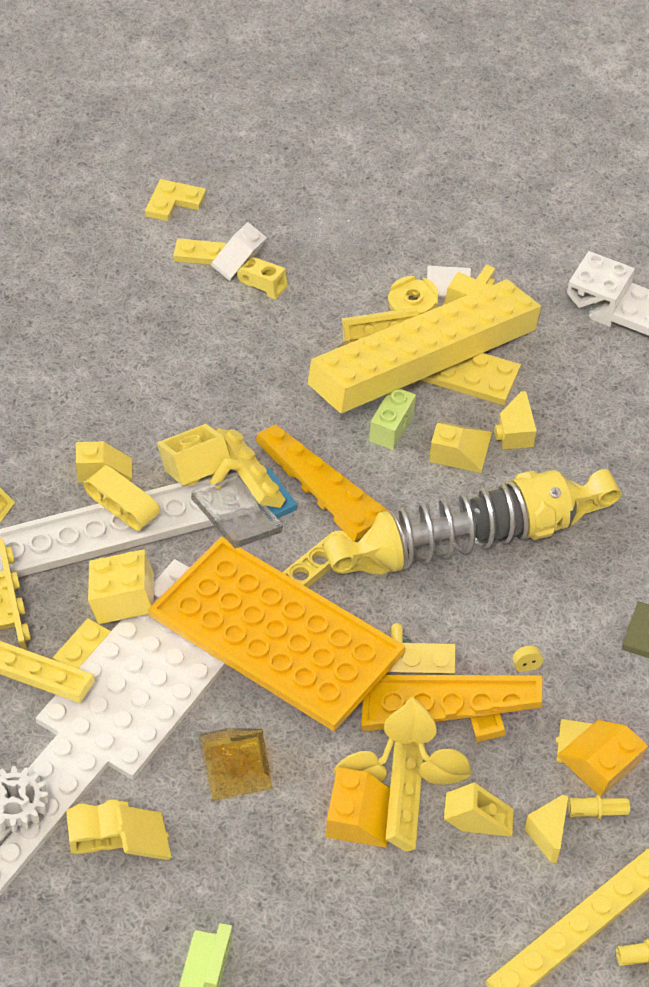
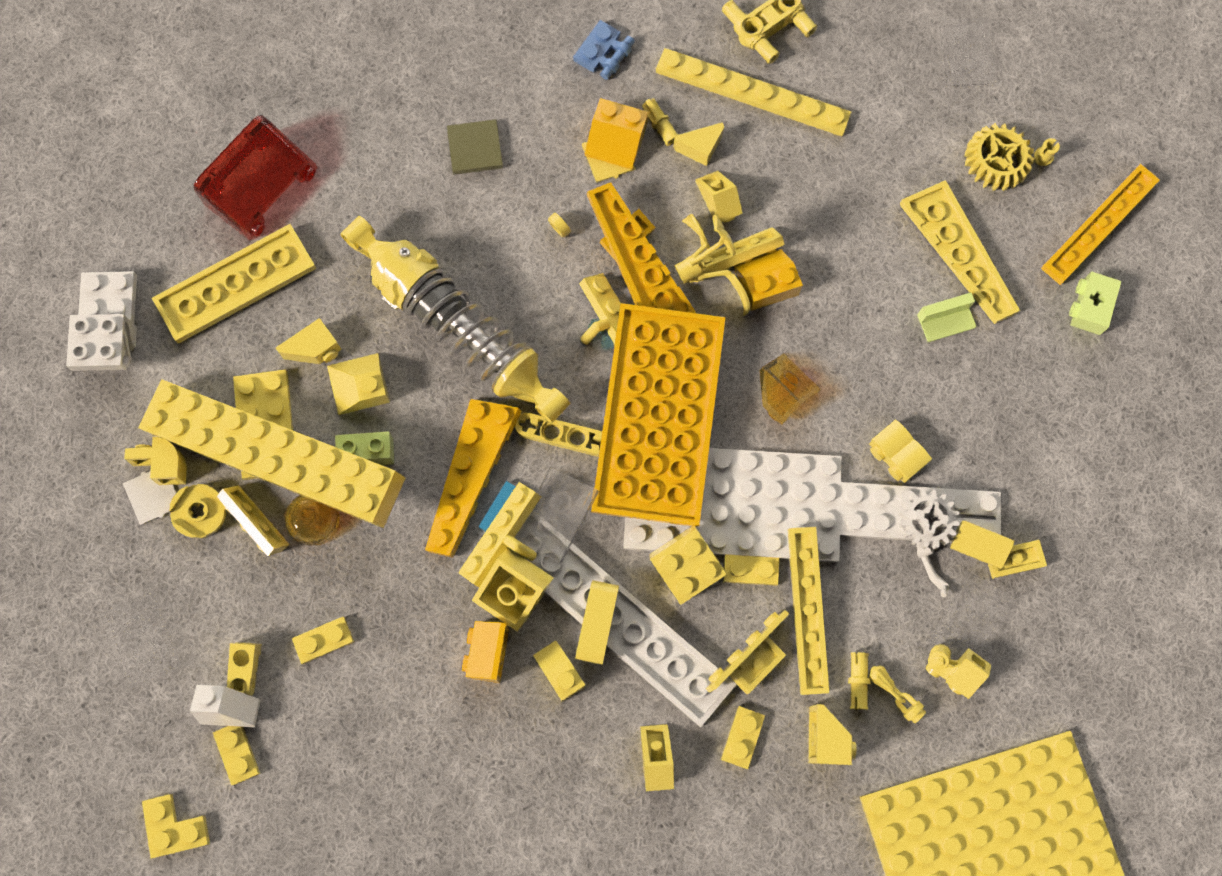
camera: 120 degrees left, 25 degrees up
(143, 832) = (887, 415): light yellow piece -> none
(151, 418) = (486, 651): none -> yellow slope
(248, 333) = (323, 640): none -> light yellow plate
(611, 400) = (233, 283): none -> light yellow plate

